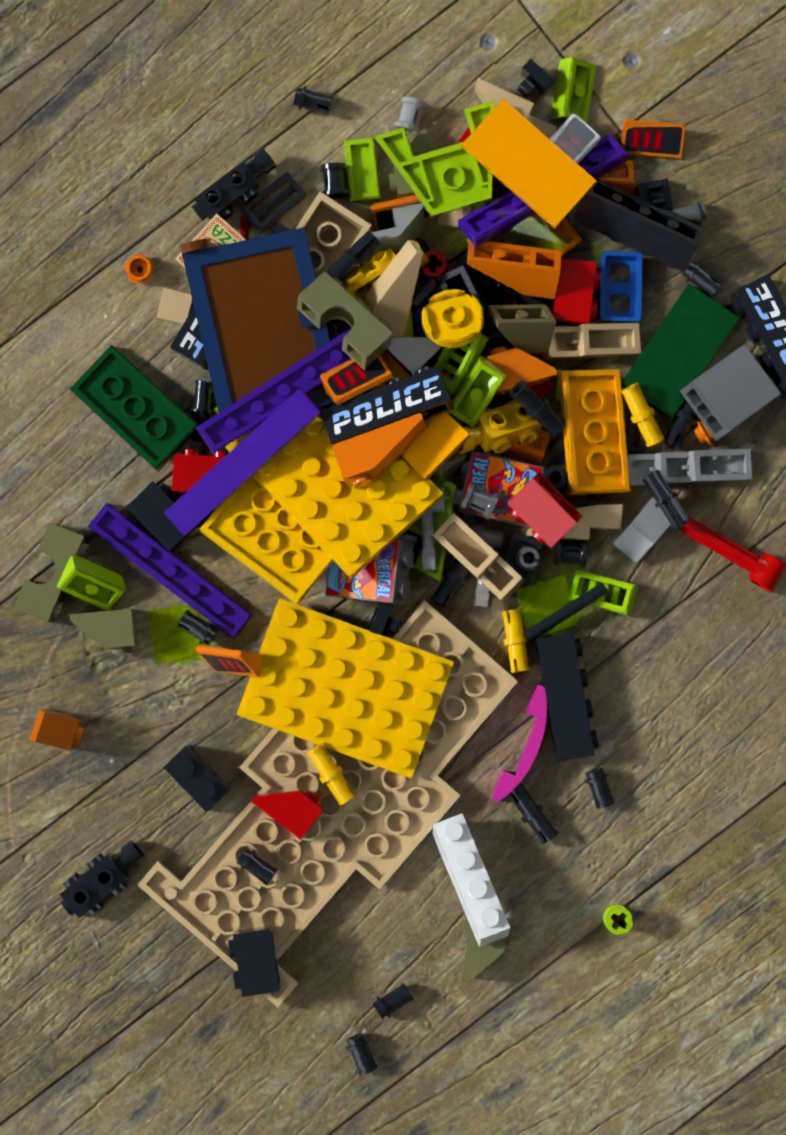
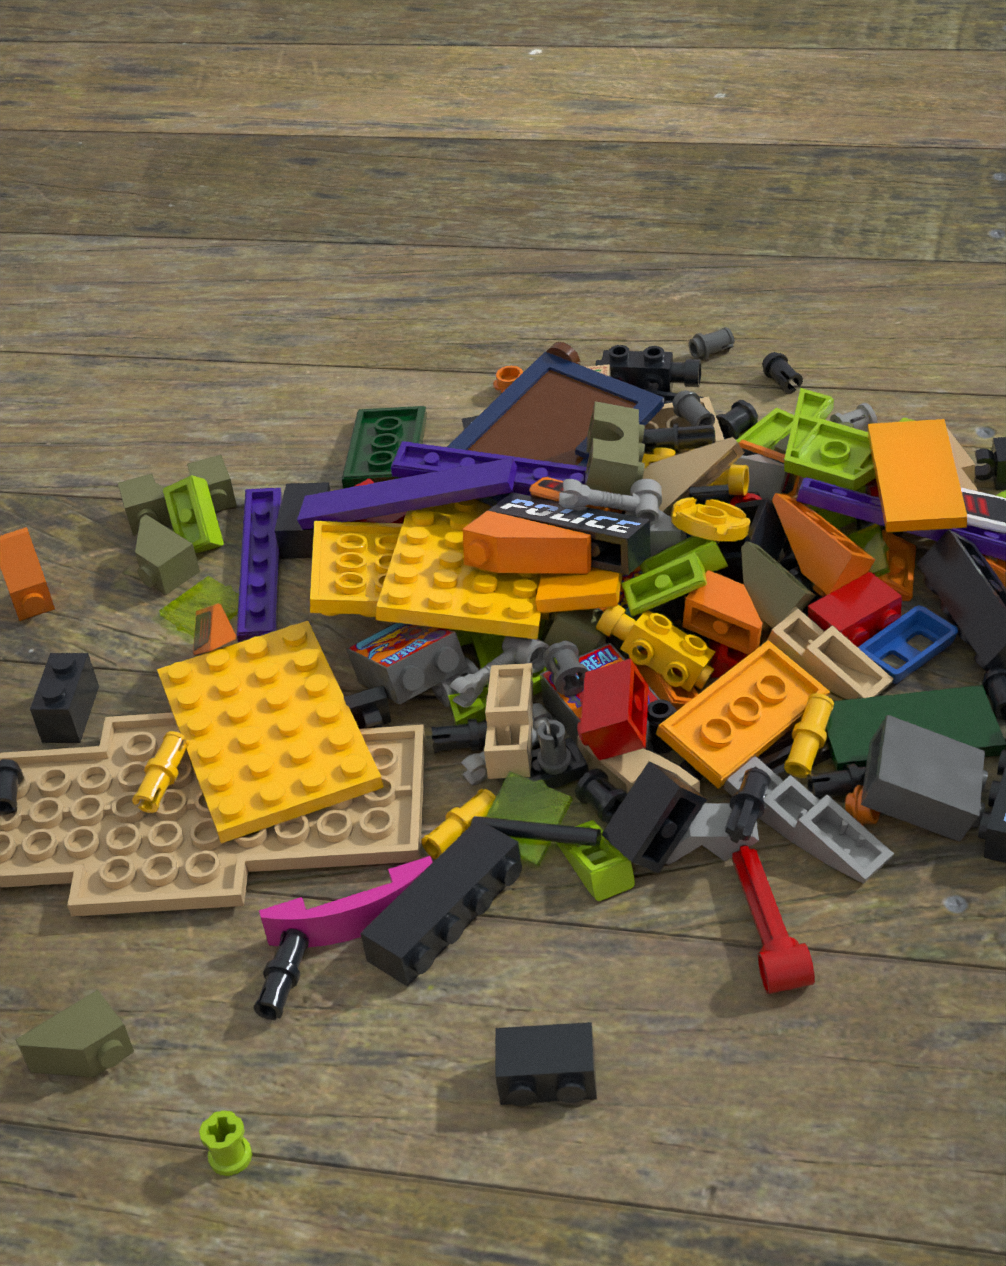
camera: 55 degrees right, 45 degrees down
(197, 628) = (223, 594): black pin -> none
(235, 111) = (703, 345): none -> dark grey pin
(291, 809) = (91, 767): red slope -> none
(334, 222) = (688, 406): none -> dark grey pin
(409, 349) = (643, 499): none -> light grey brick
(470, 880) = (141, 954): white brick -> none
(537, 408) = (707, 638): black pin -> none
(599, 787) = (378, 1002): black pin -> none
(626, 553) = (653, 817): none -> black brick
(715, 736) = (545, 1064): none -> black brick

